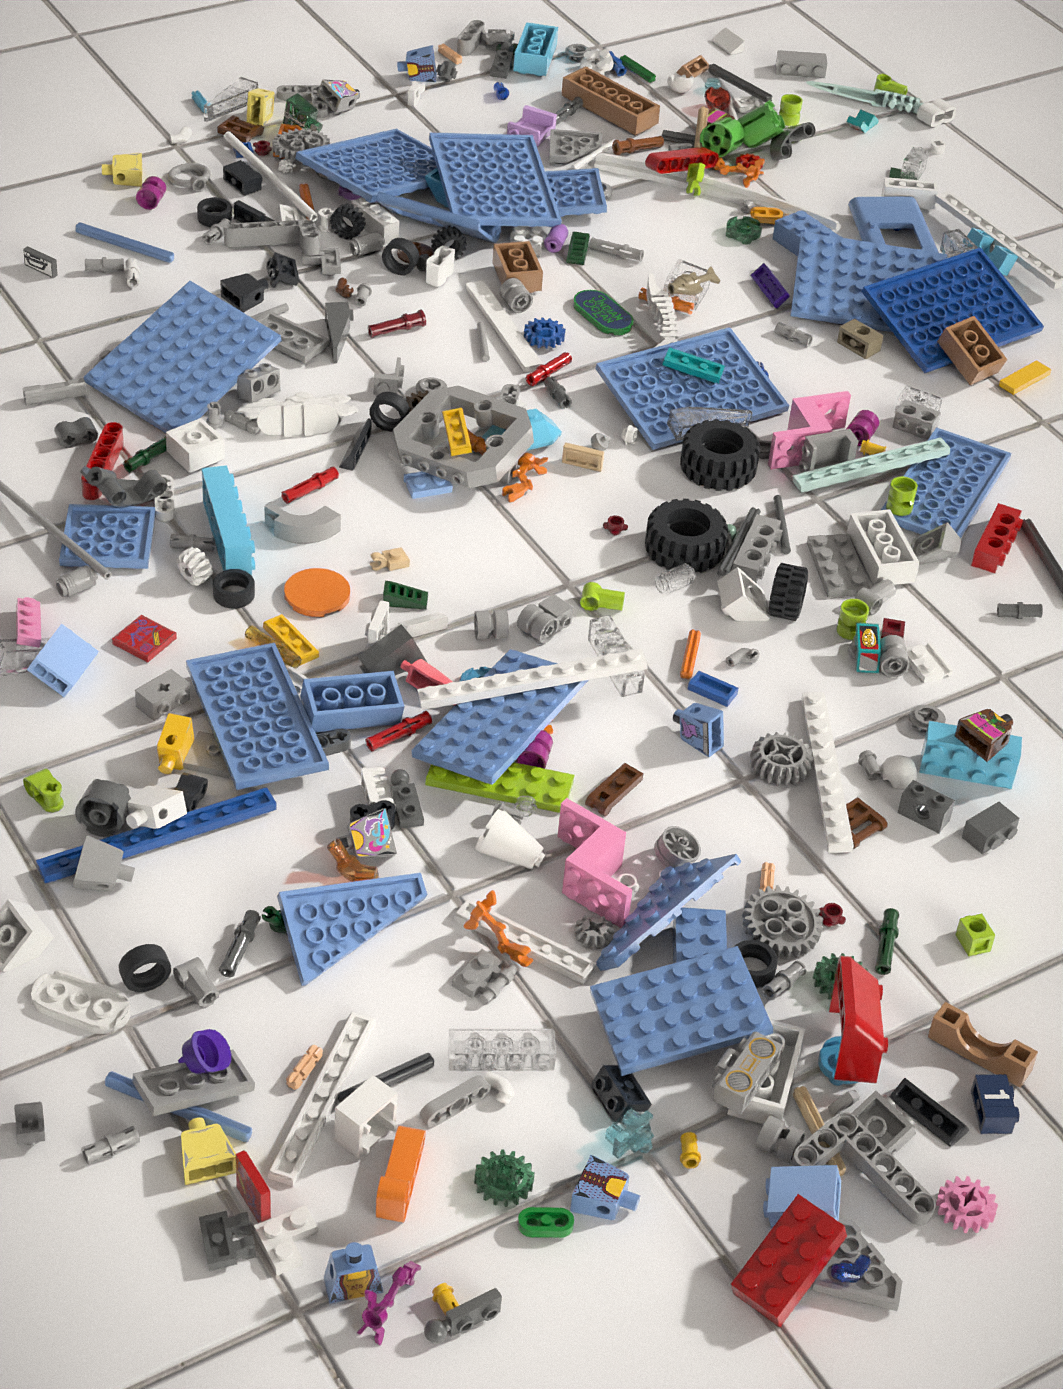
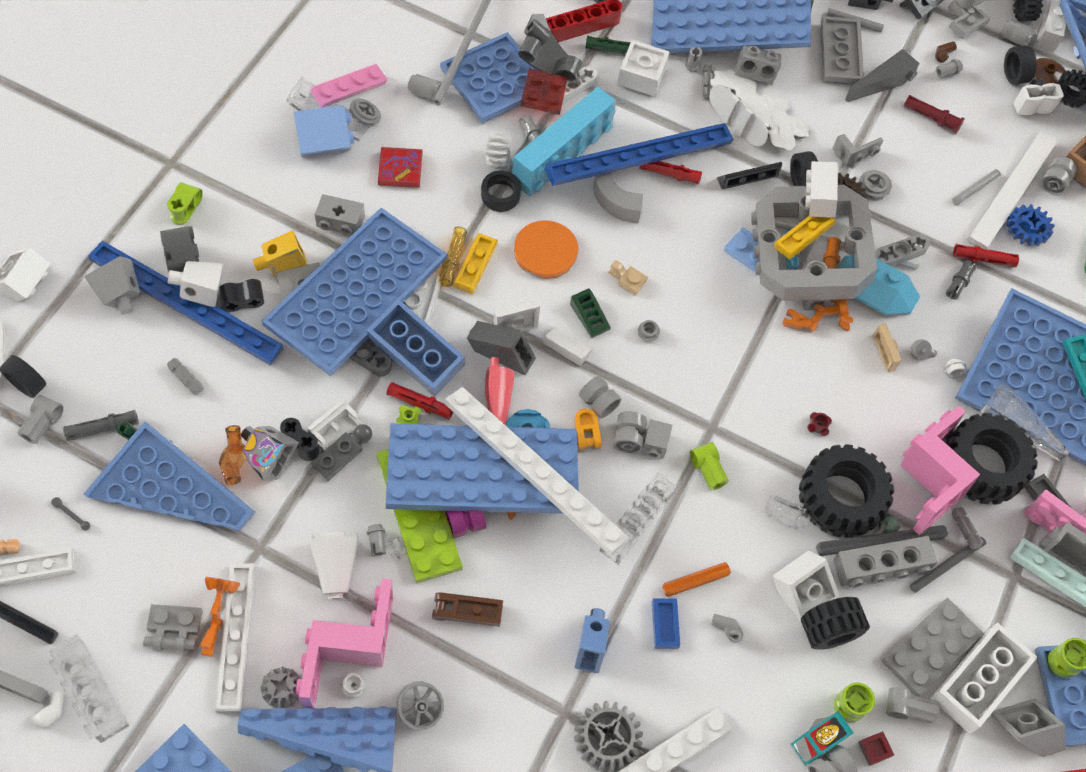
camera: 55 degrees right, 20 degrees up
(52, 627) = (372, 113): none -> light grey gear
(159, 511) = (544, 91): none -> clear red plate
(237, 868) = (185, 376): none -> light grey axle
(284, 488) = (638, 154): none -> blue plate
(293, 1008) = (57, 503): none -> dark grey hinge
(405, 745) = (413, 412): none -> lime plate
(430, 398) = (822, 189): none -> white brick
(451, 571) = (651, 326): none -> light grey plate
(503, 643) = (585, 422): none -> light orange plate
(711, 478) = (938, 469): none -> bright pink bracket
(762, 497) = (967, 528): none -> light grey axle

